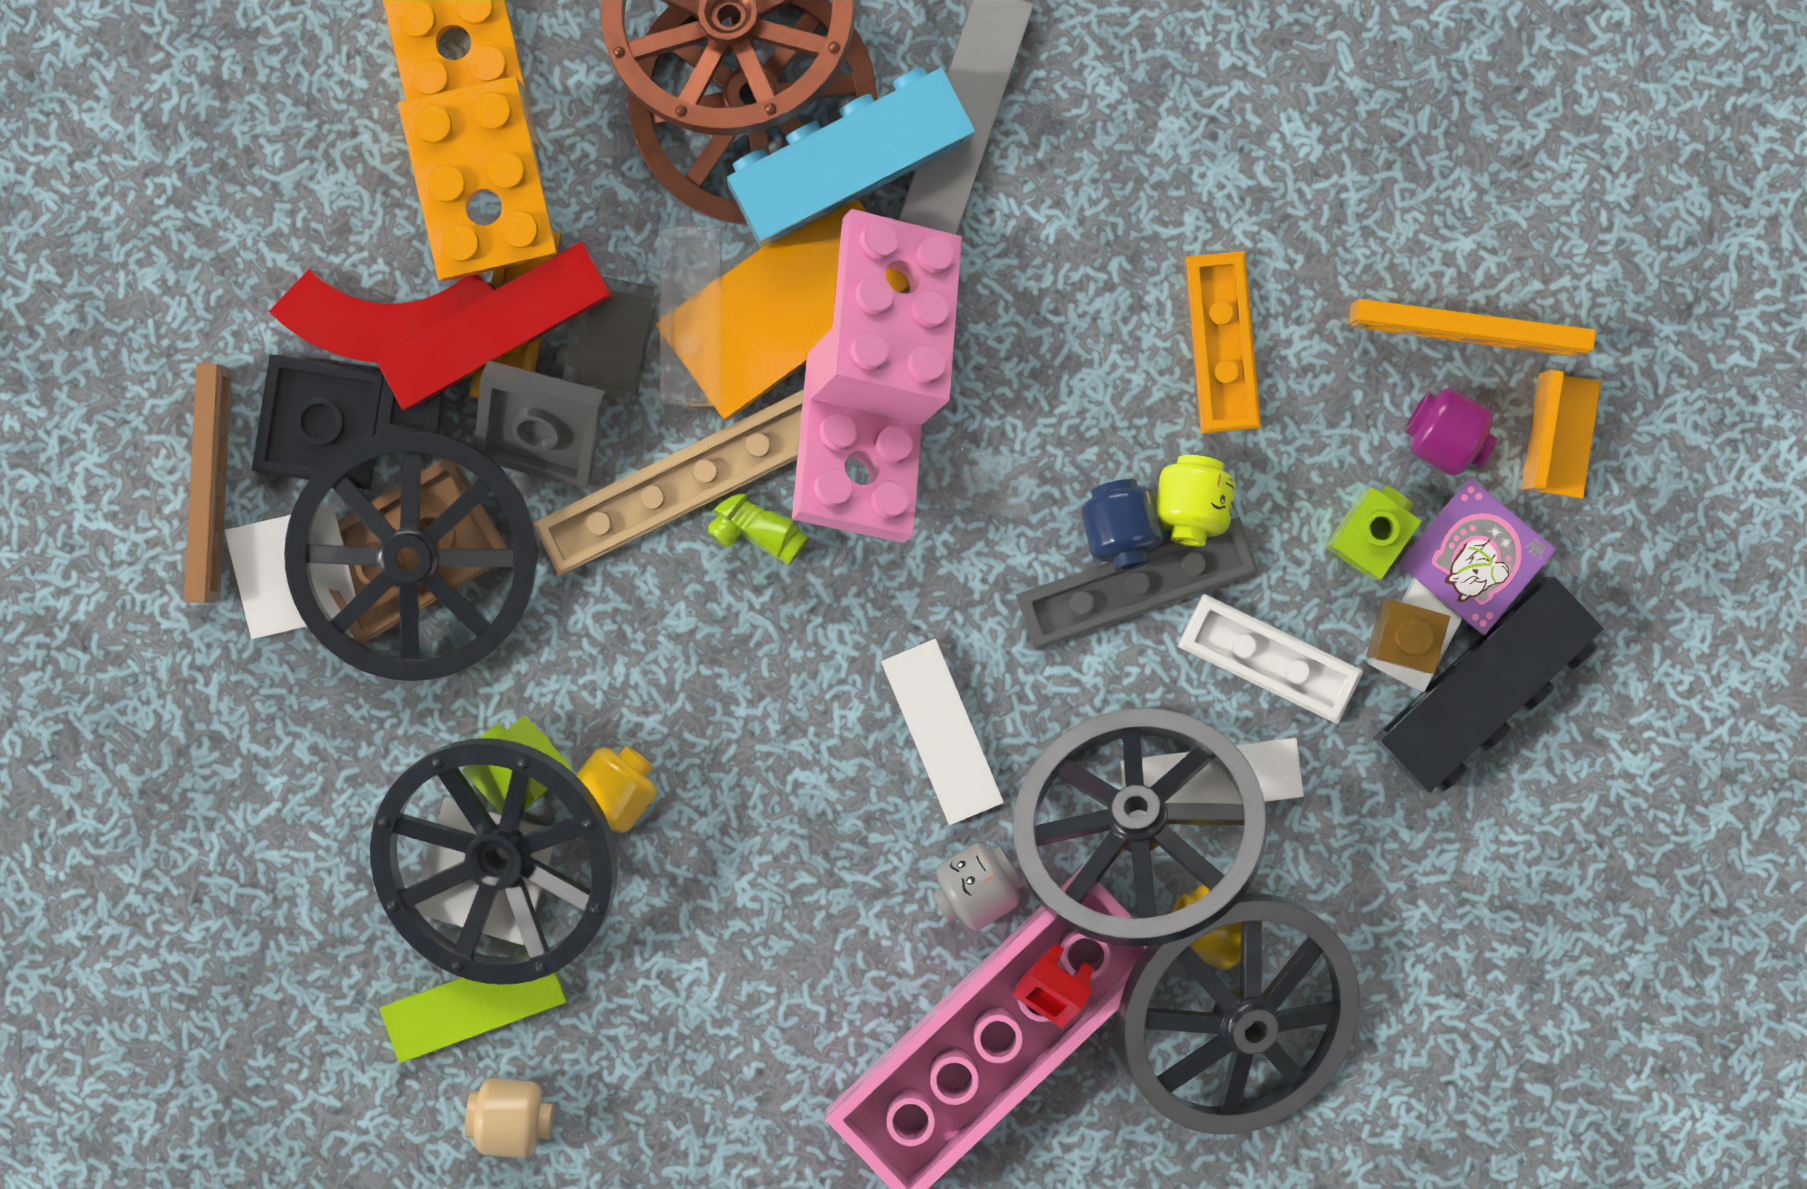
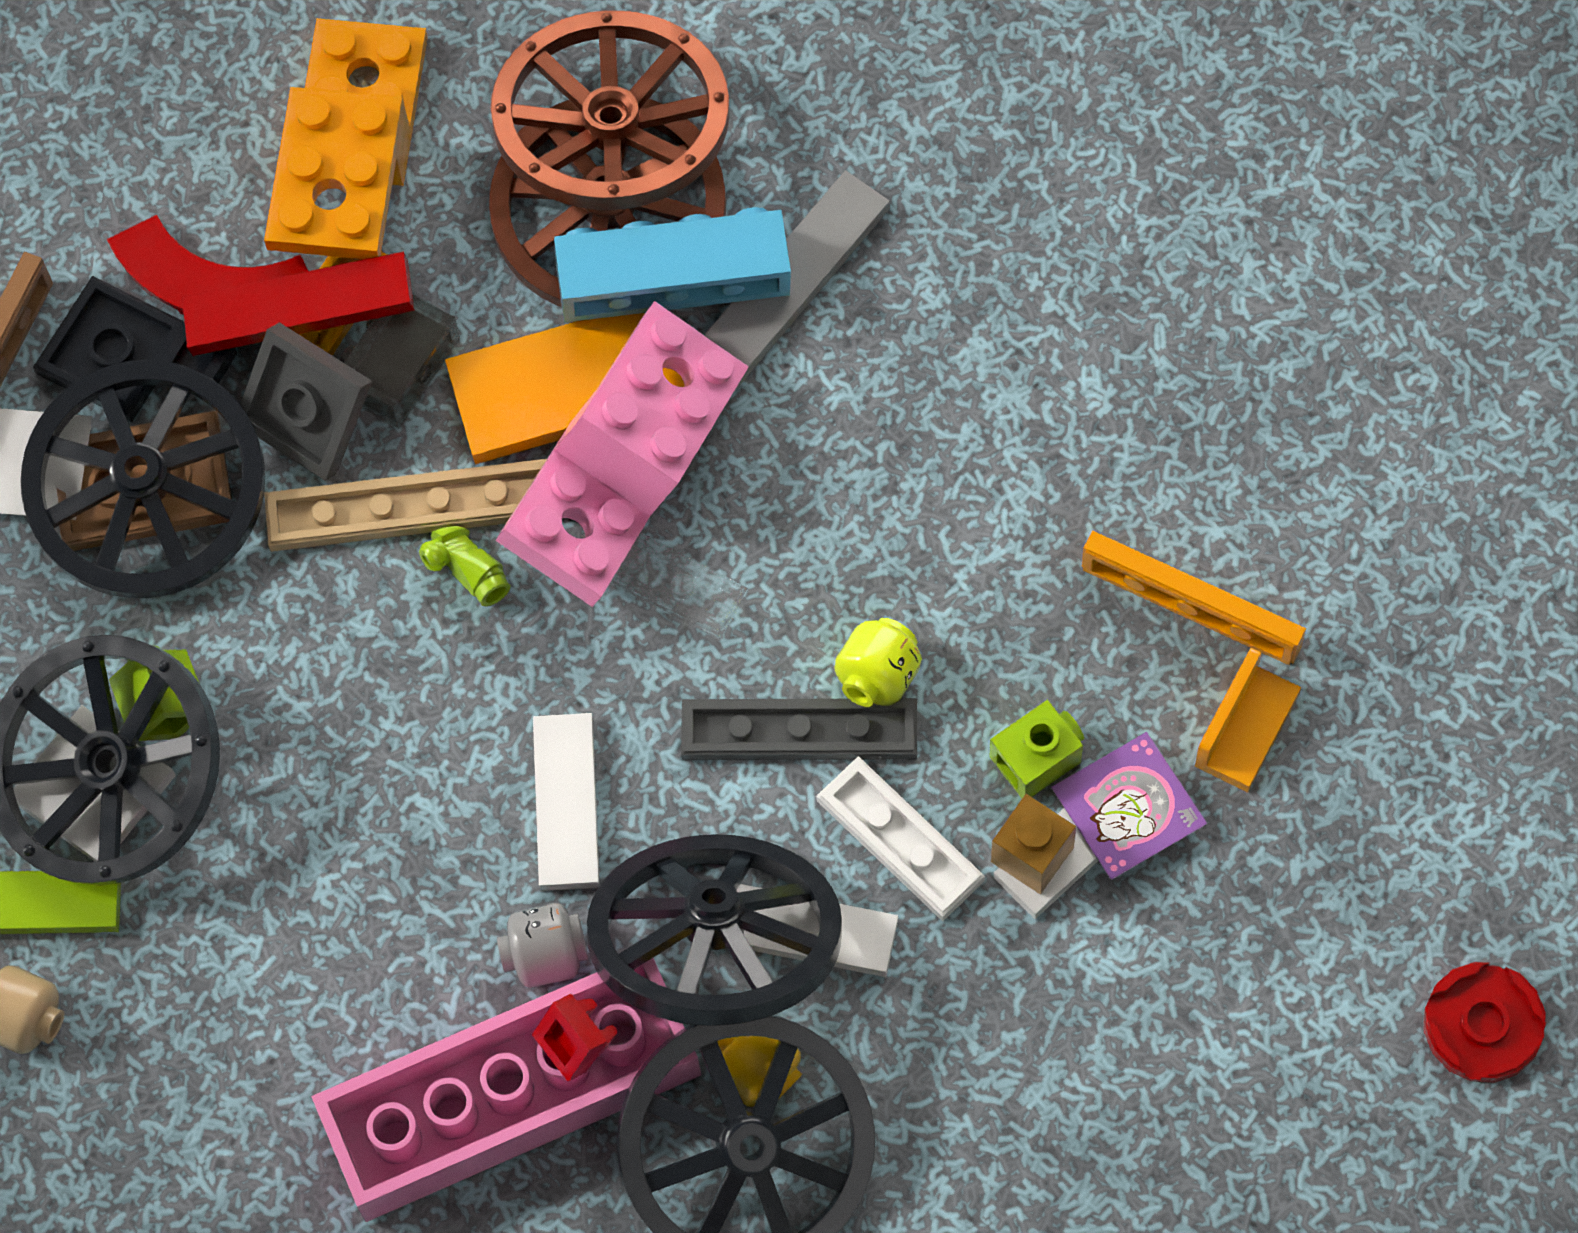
camera: 25 degrees right, 20 degrees down
(619, 785) = (246, 744): yellow head -> none
(691, 316) = (478, 359): clear tile -> none
(1122, 524) = (802, 662): dark blue head -> none
(1222, 342) = (957, 543): light orange tile -> none
(1451, 431) = (1141, 683): magenta head -> none
(1489, 684) = (1099, 924): black brick -> none

